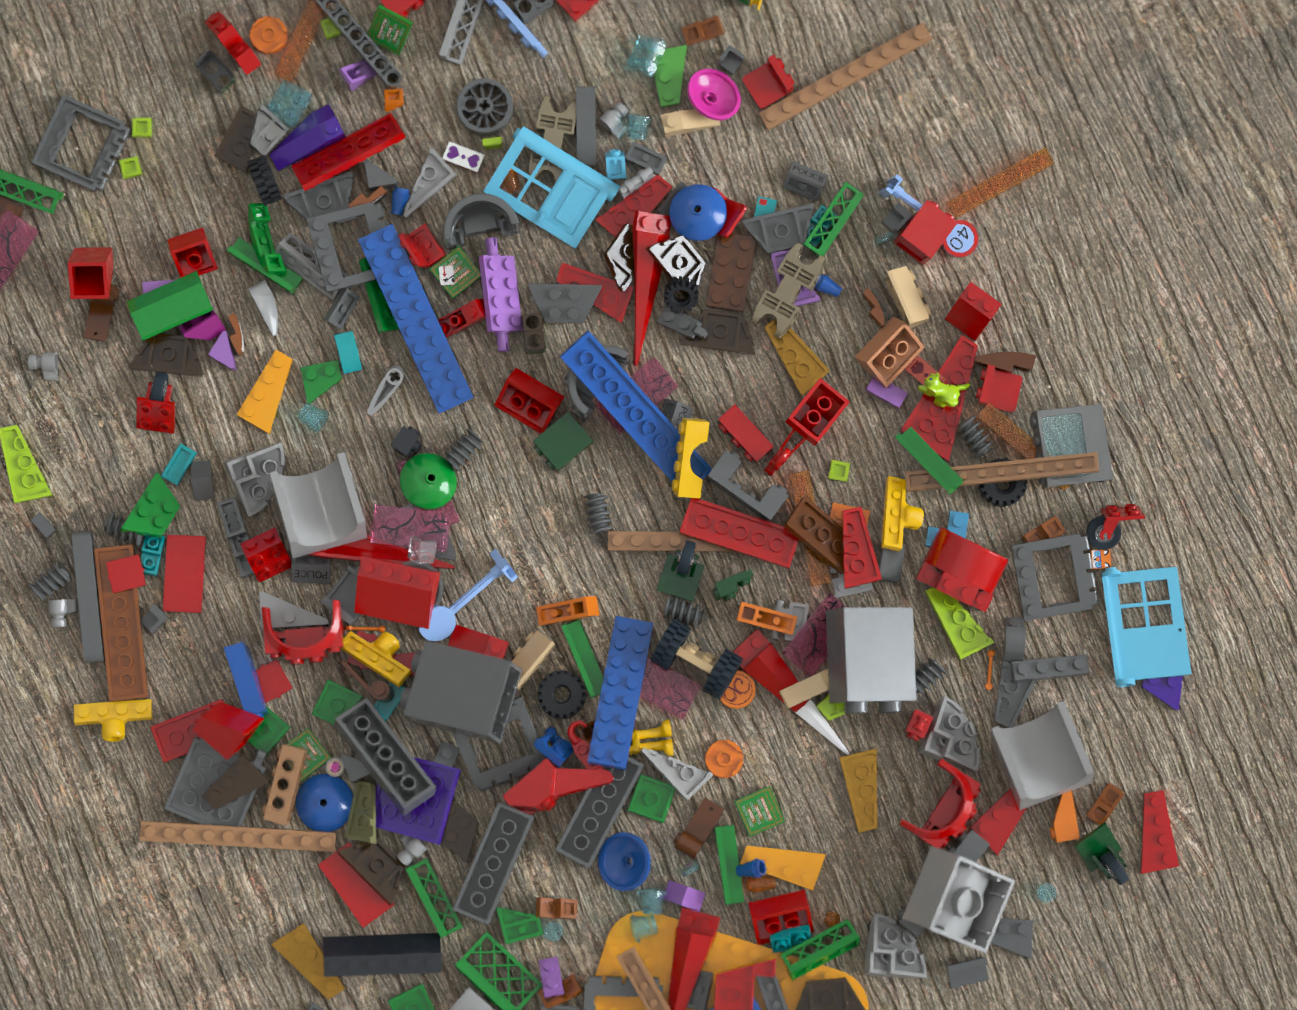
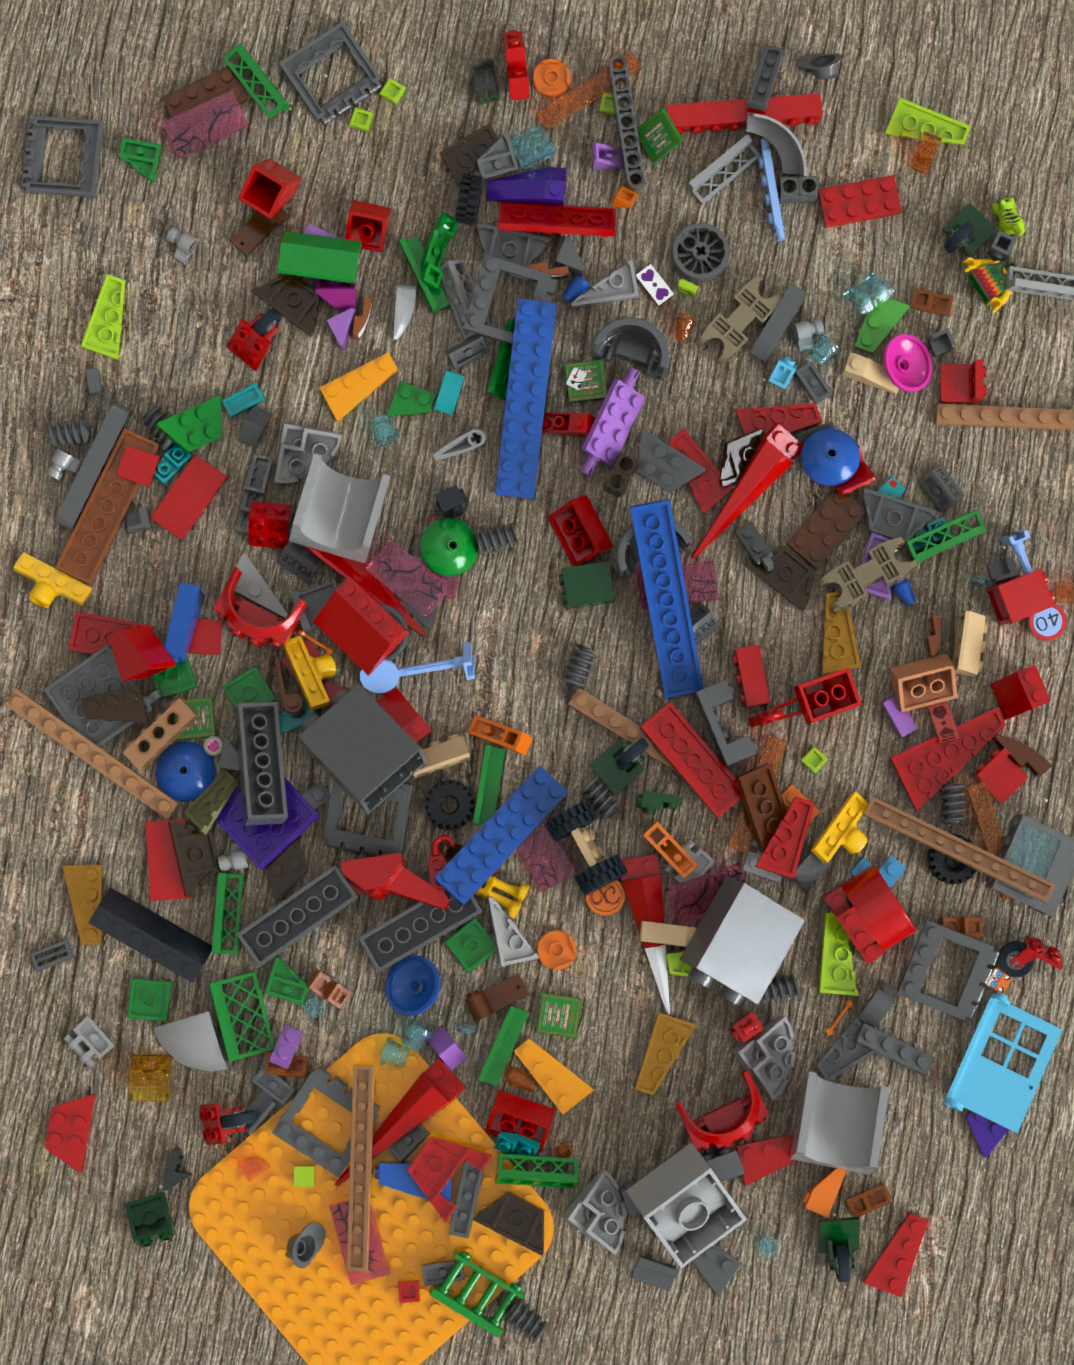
camera: 30 degrees right, 0 degrees up
(422, 246) = (570, 340): red bracket -> none
(422, 551) = (404, 604): clear panel -> none
(558, 751) = (414, 853): blue plate -> none
(571, 201) = (726, 379): medium azure door -> none
(636, 182) = (792, 398): light grey plate -> none
(678, 259) = (786, 492): wing -> none
(681, 304) = (775, 510): black tyre -> none
(692, 434) = (705, 647): yellow arch -> none
(753, 868) = (522, 1063): blue cone -> none
(929, 460) = (900, 800): green fence -> none
(944, 393) = (949, 749): lime animal -> none

